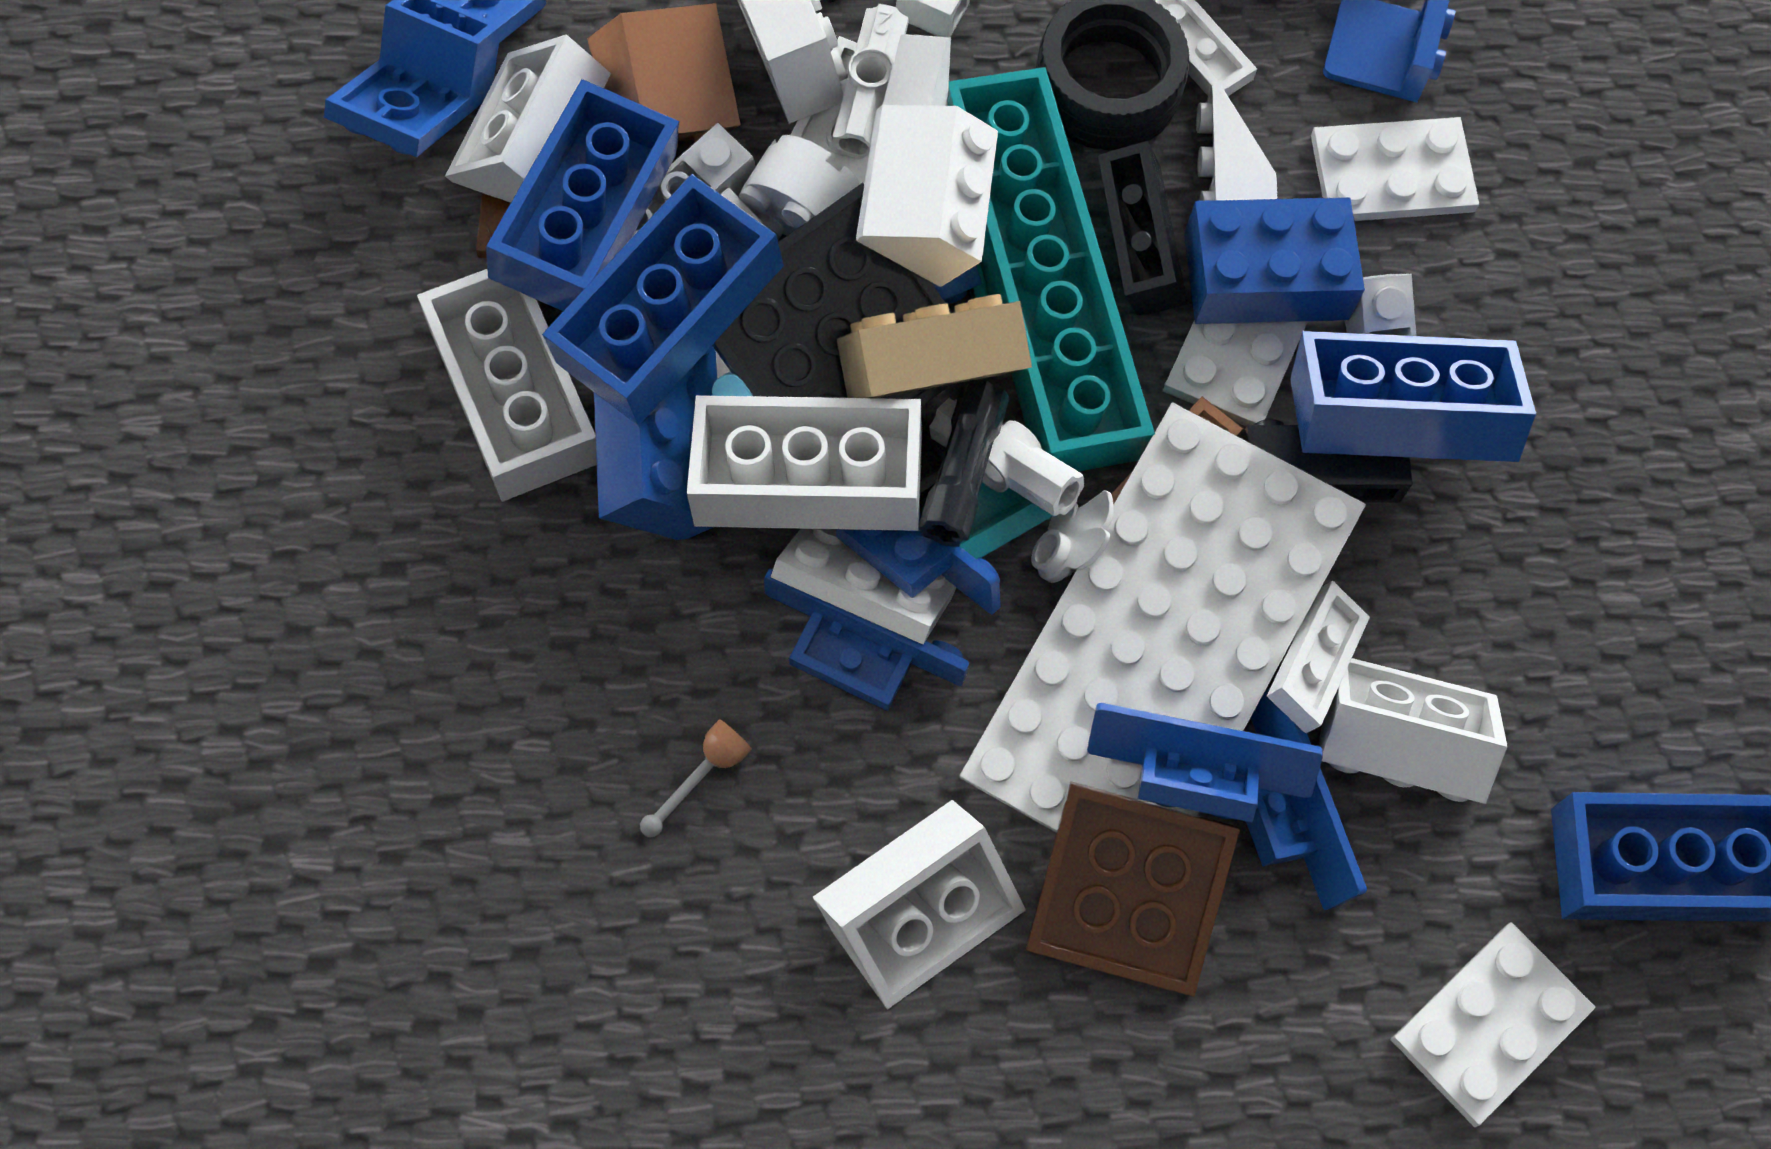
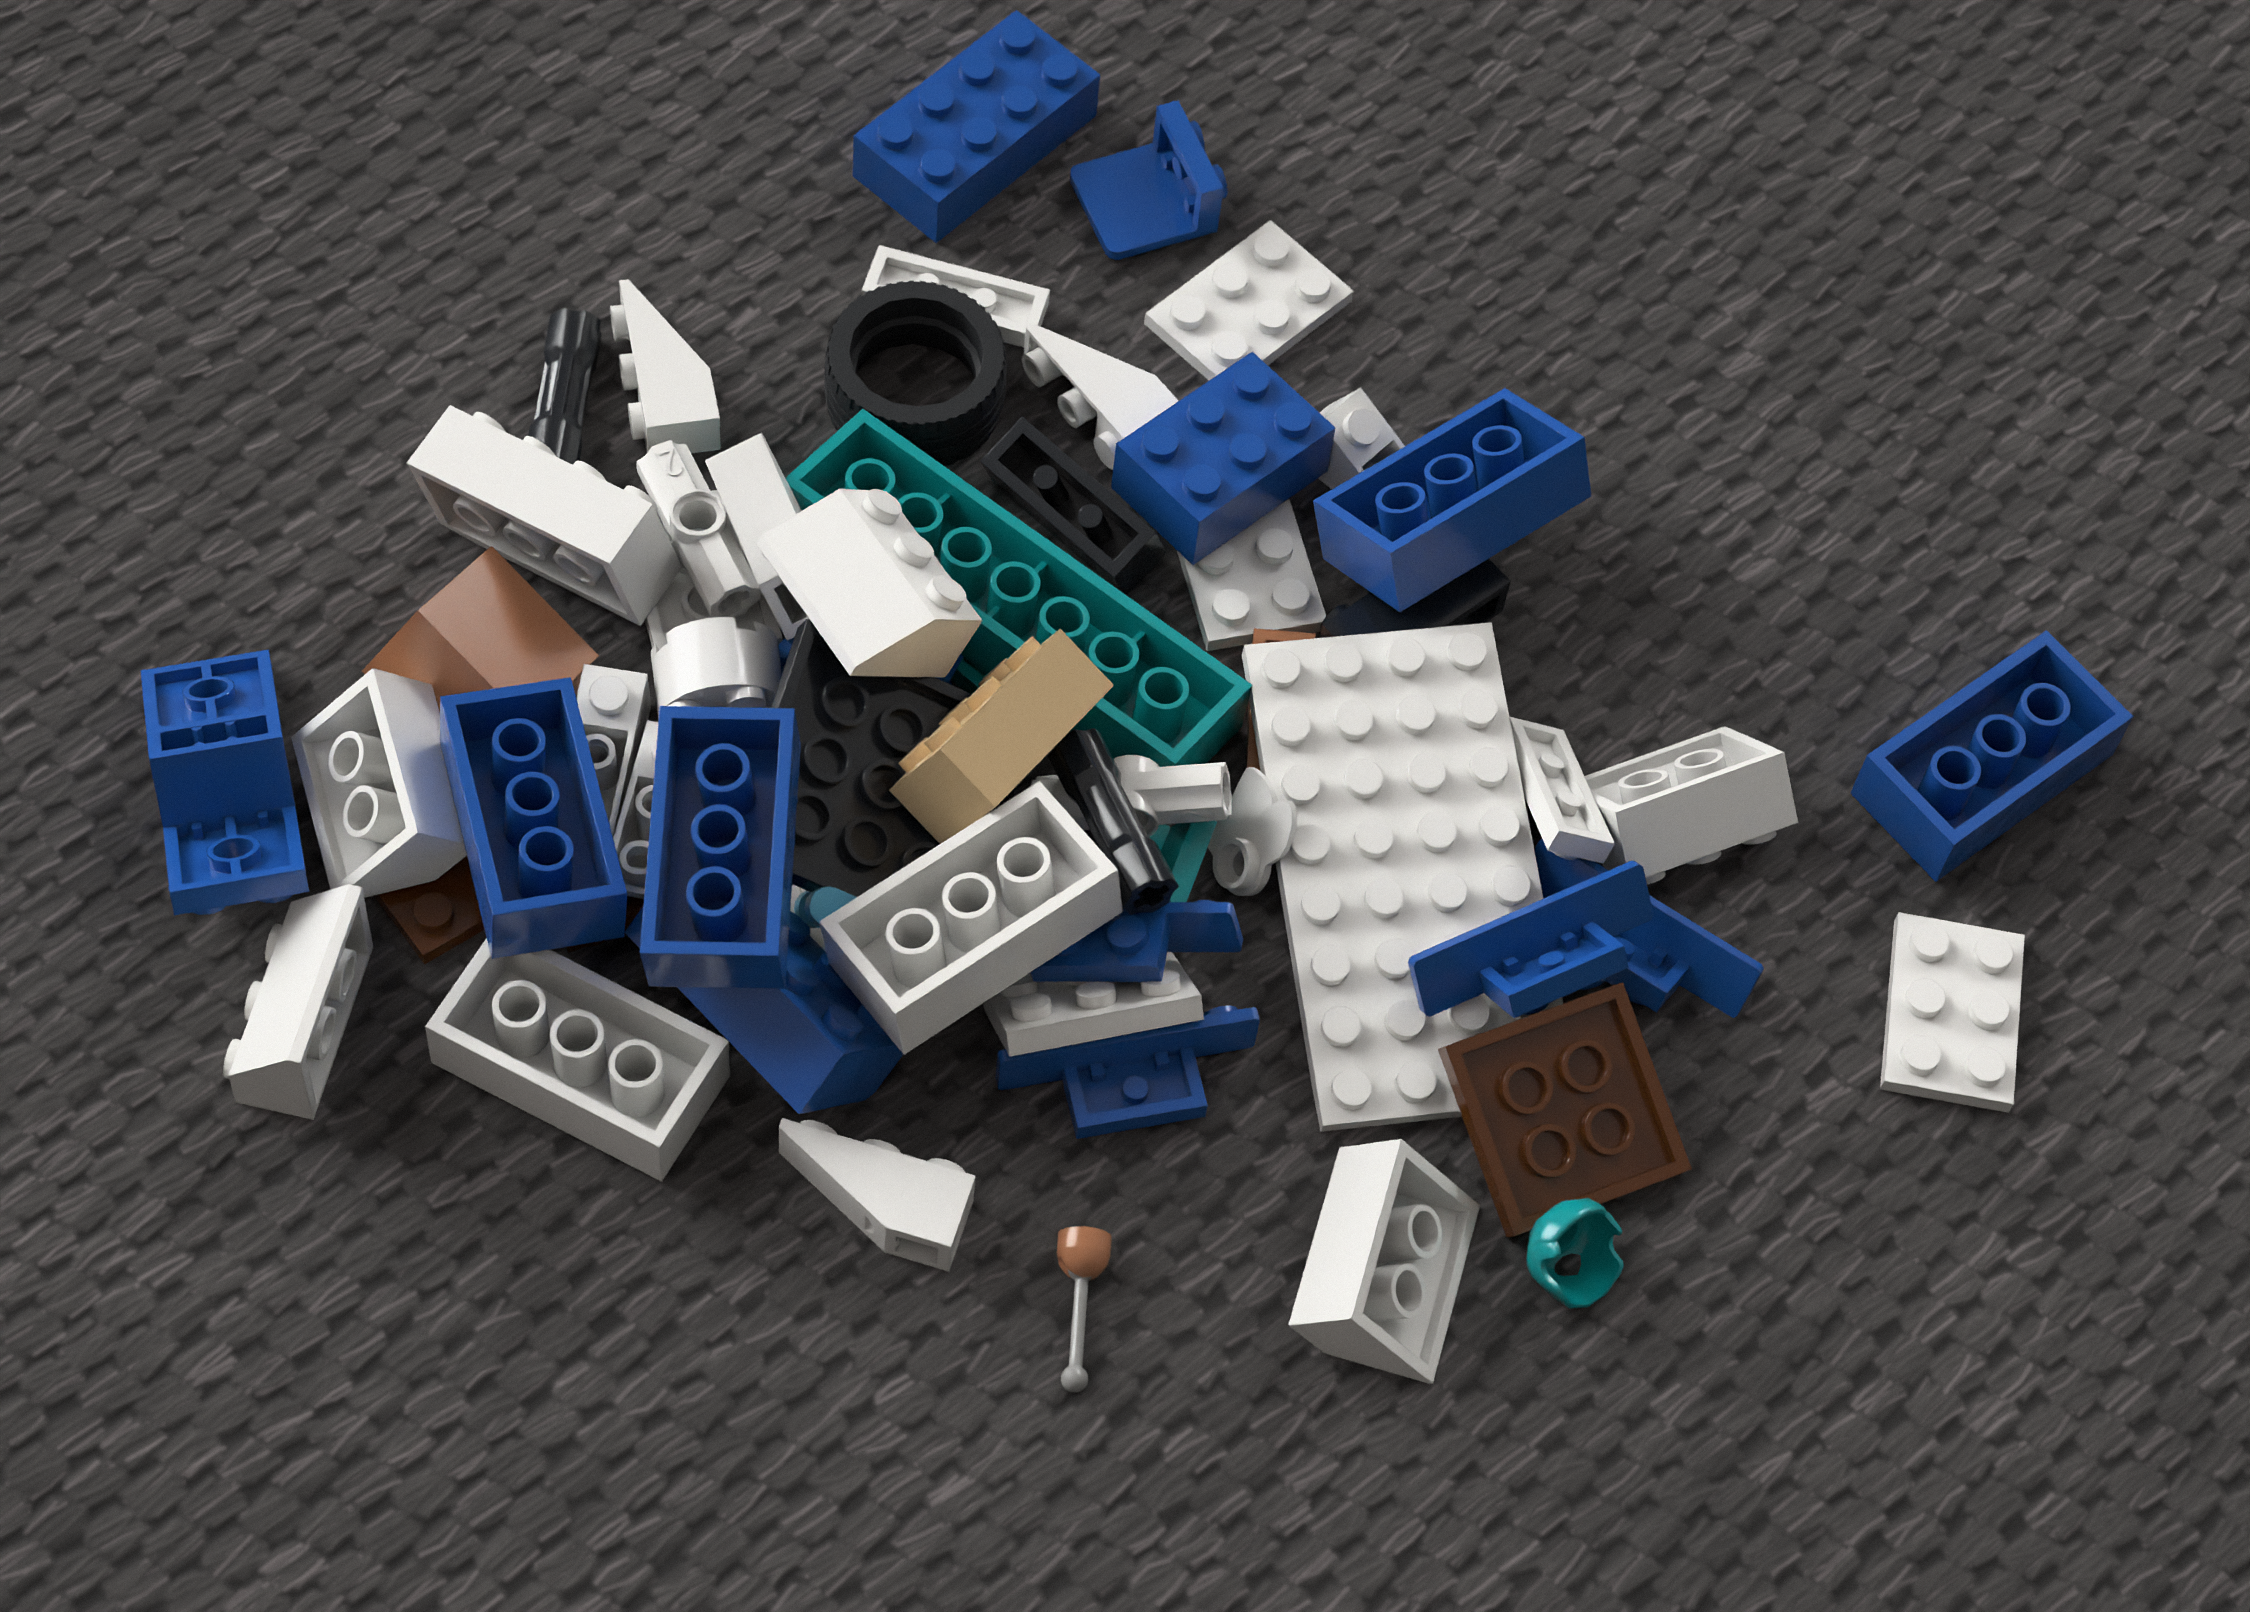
camera: 40 degrees left, 10 degrees down
(372, 232) = (301, 1003): none -> white slope
(631, 623) = (894, 1198): none -> white slope
(1062, 972) = (1579, 1229): none -> teal hair

